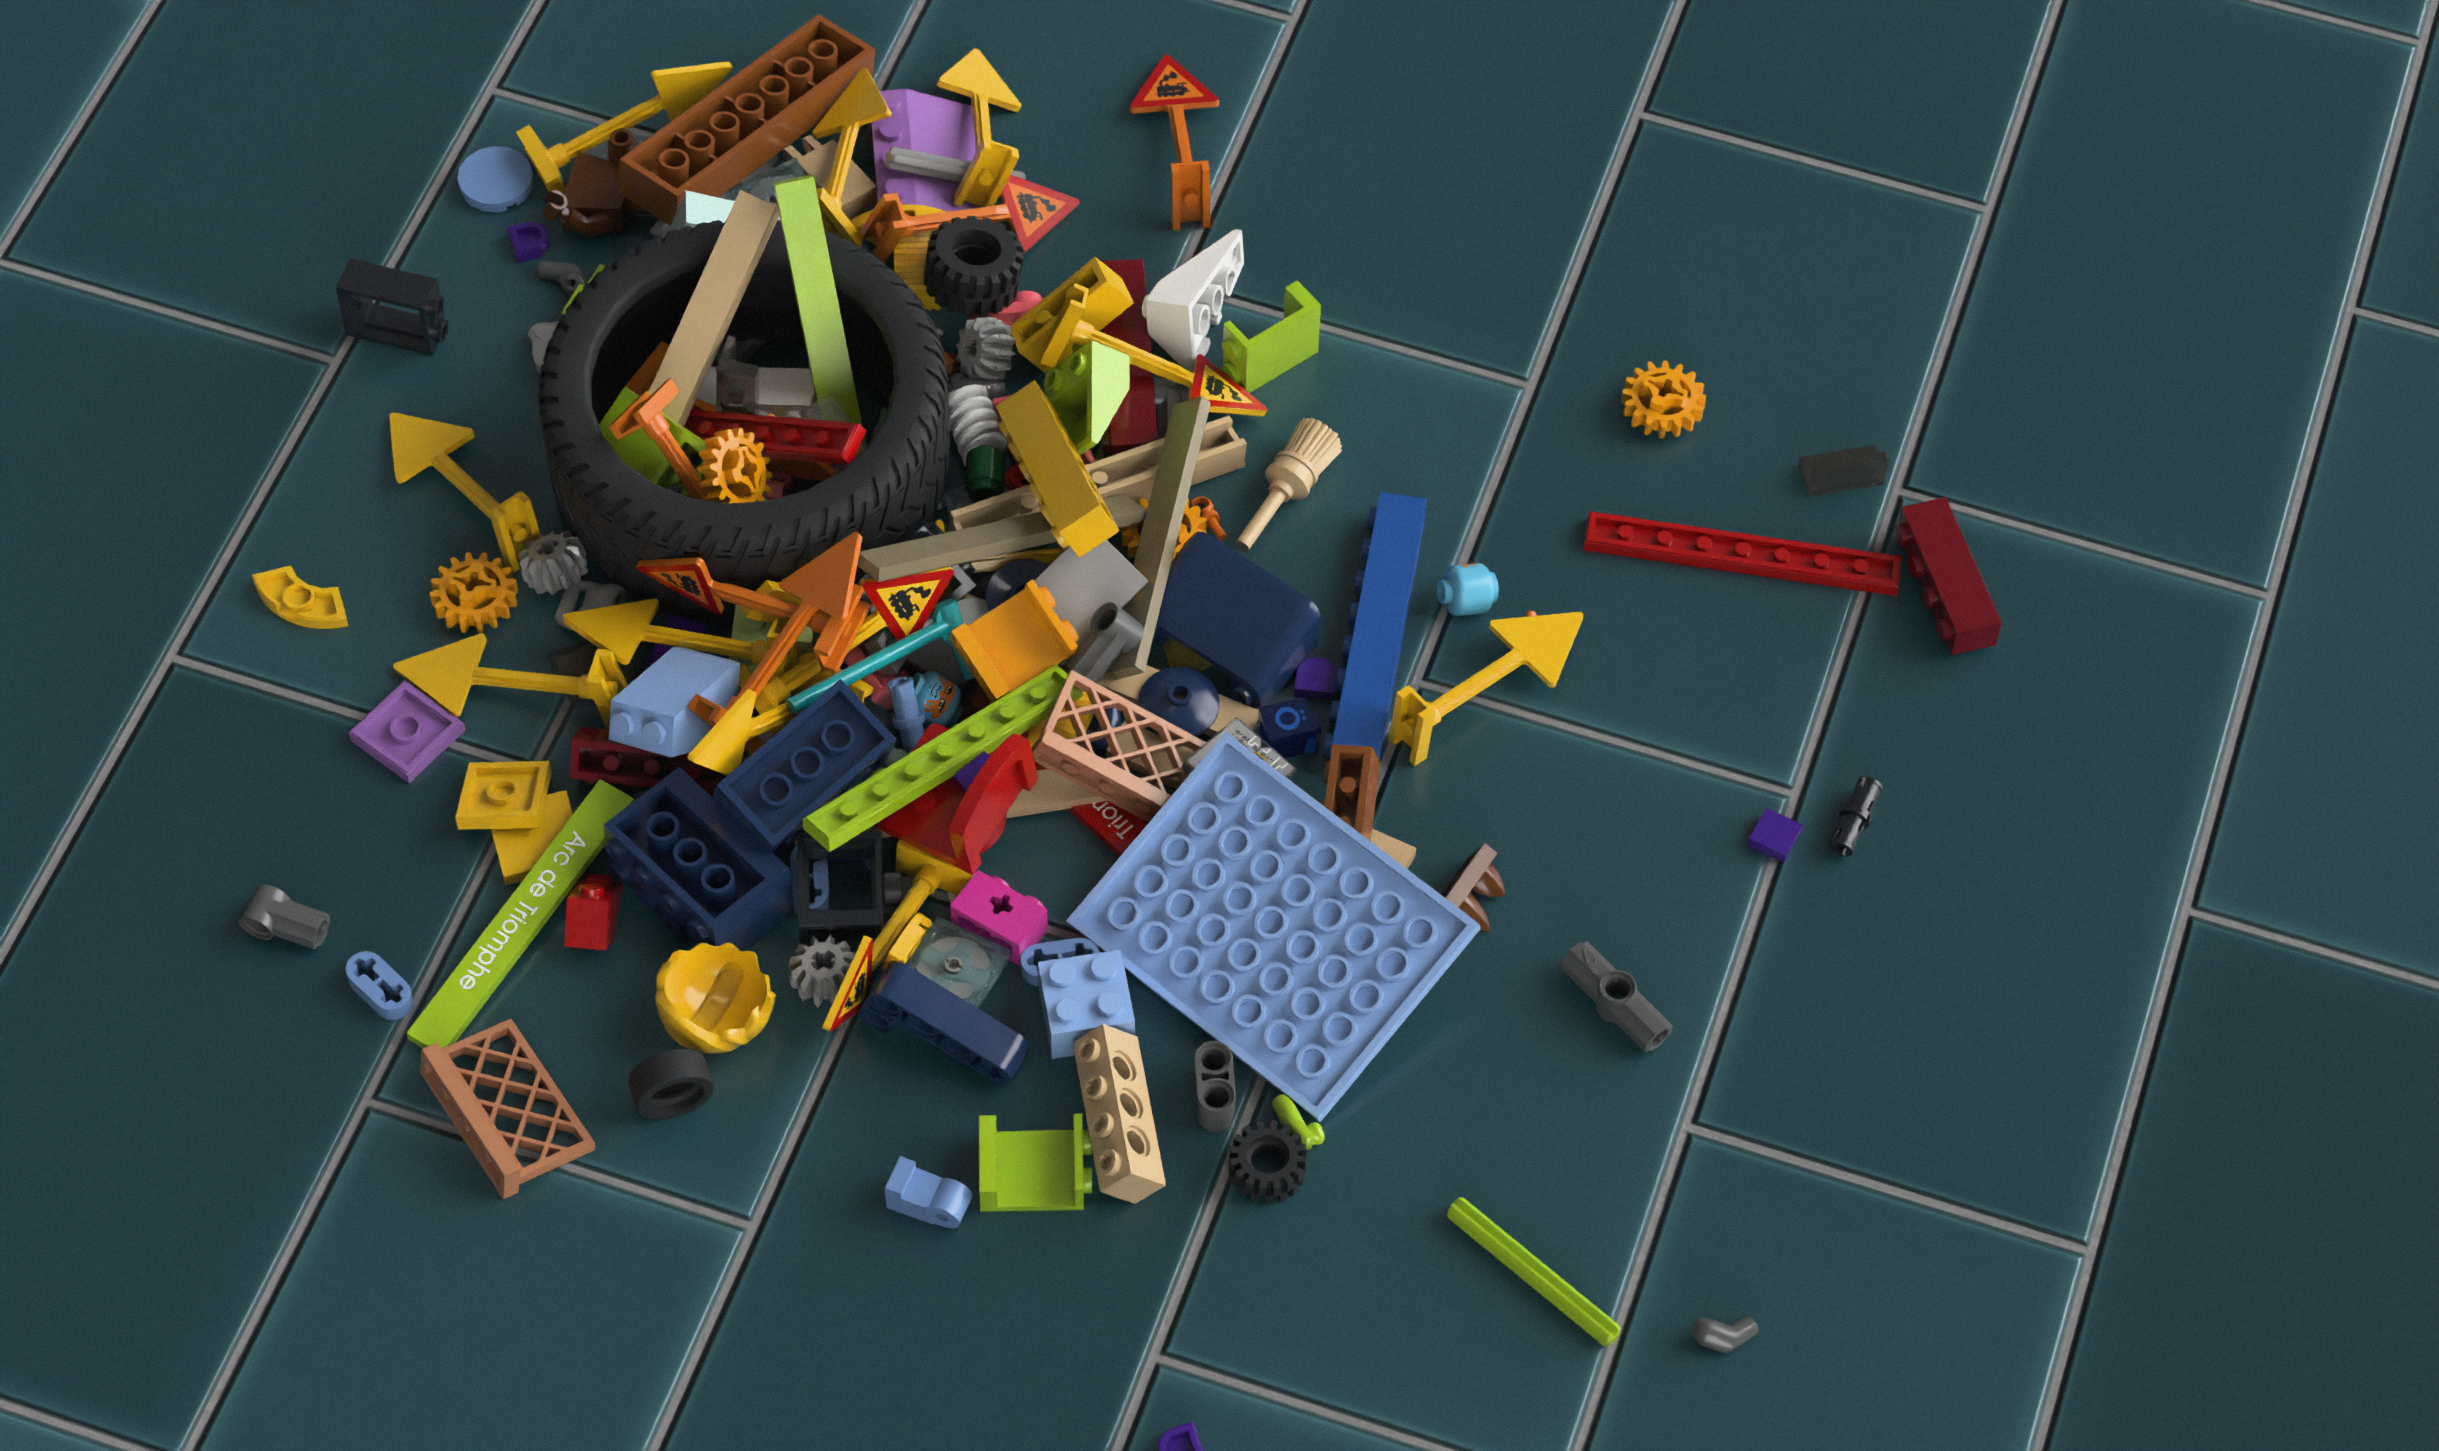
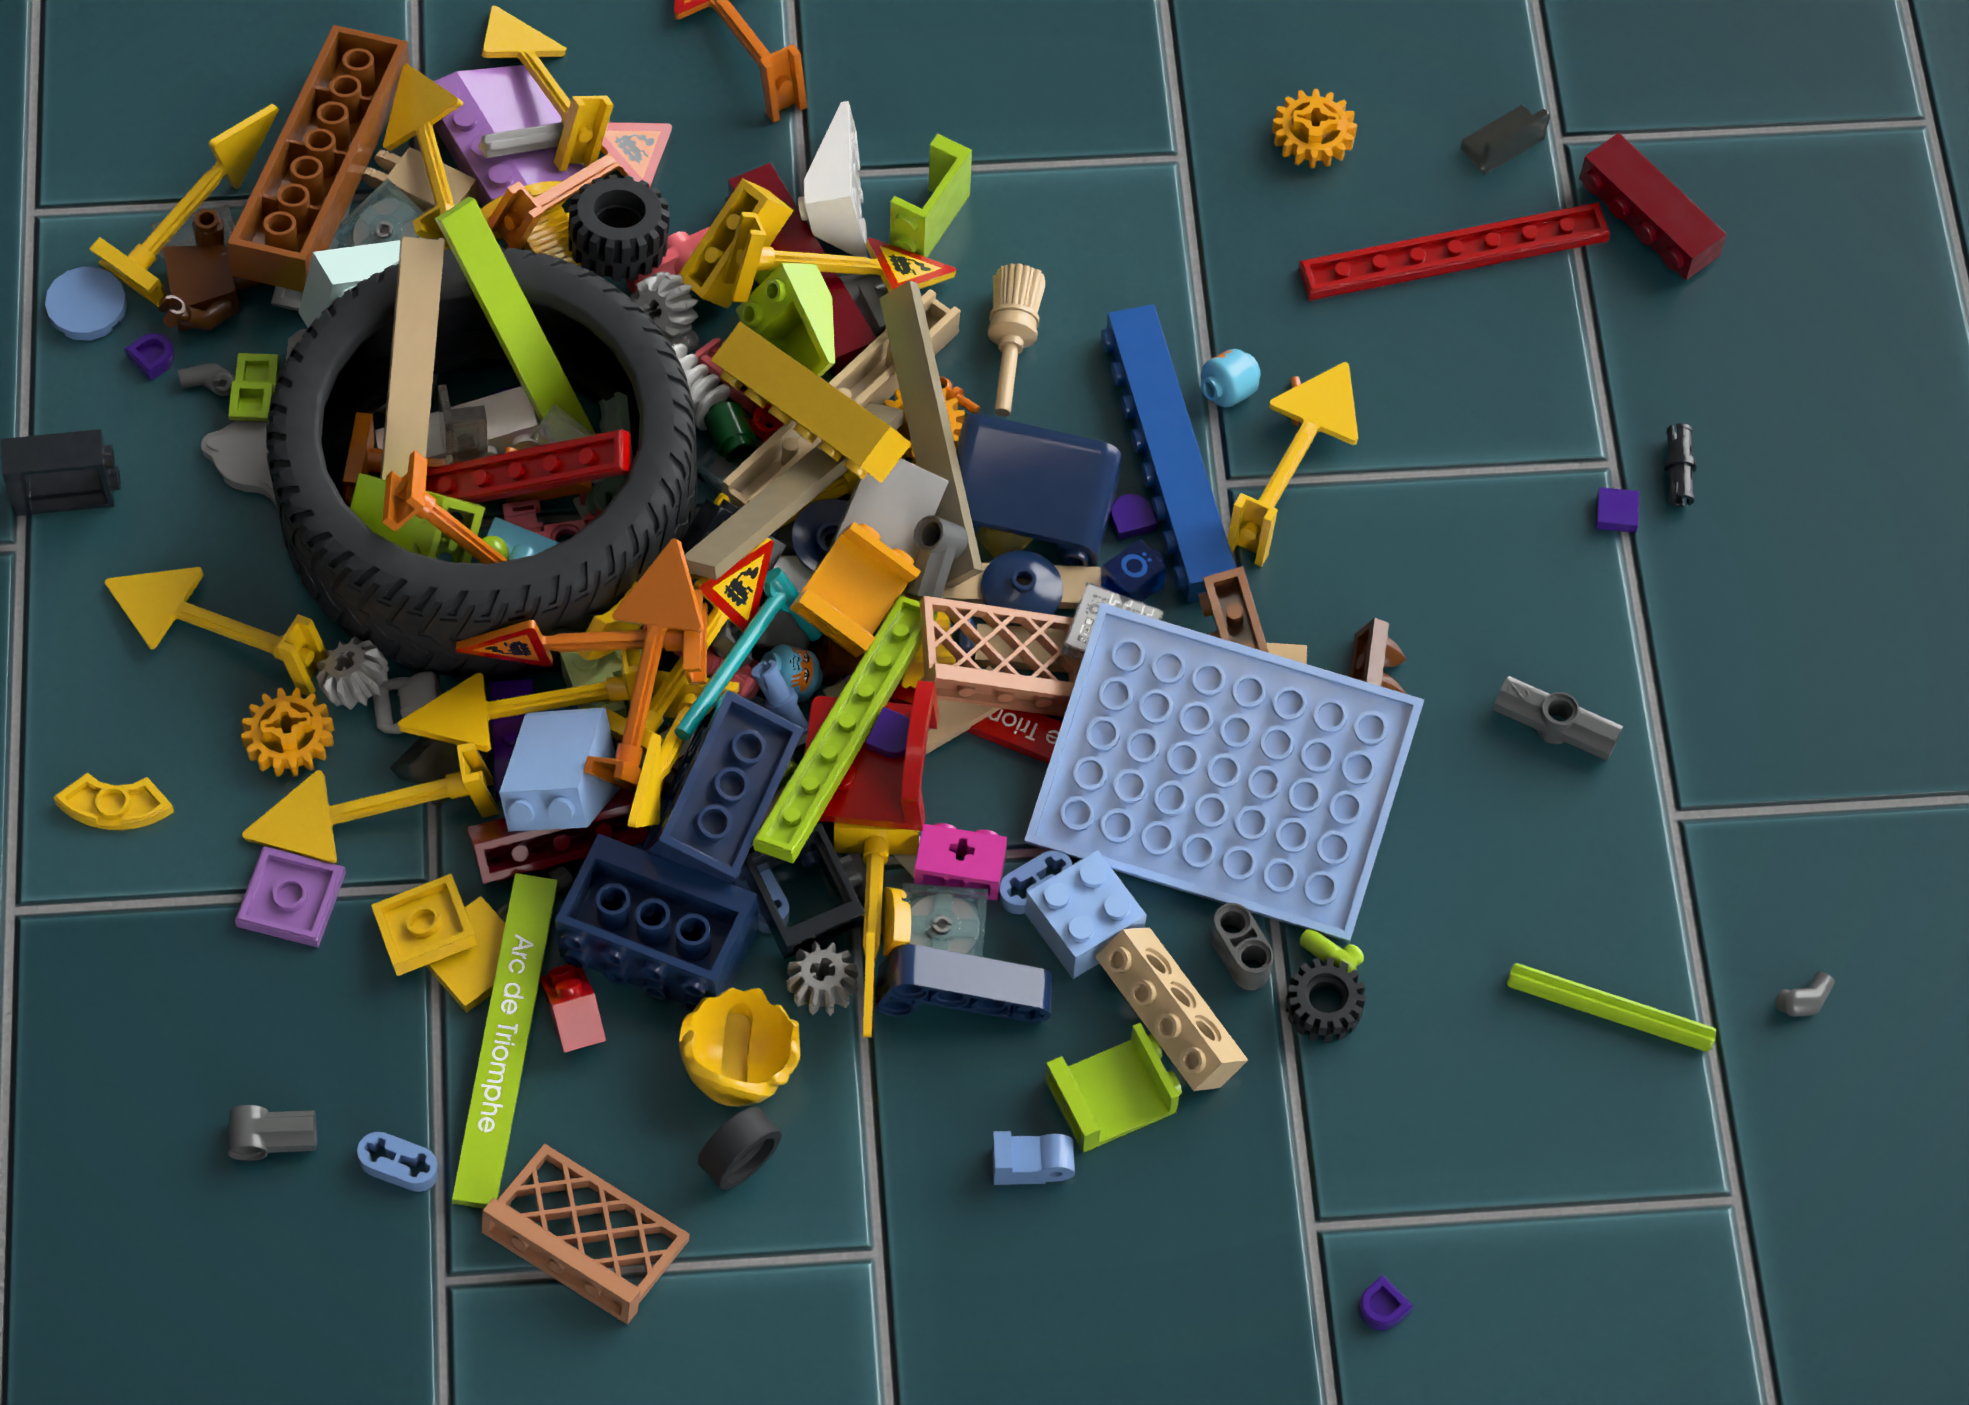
camera: 25 degrees left, 5 degrees up
(734, 468) = (511, 518): light orange gear -> none

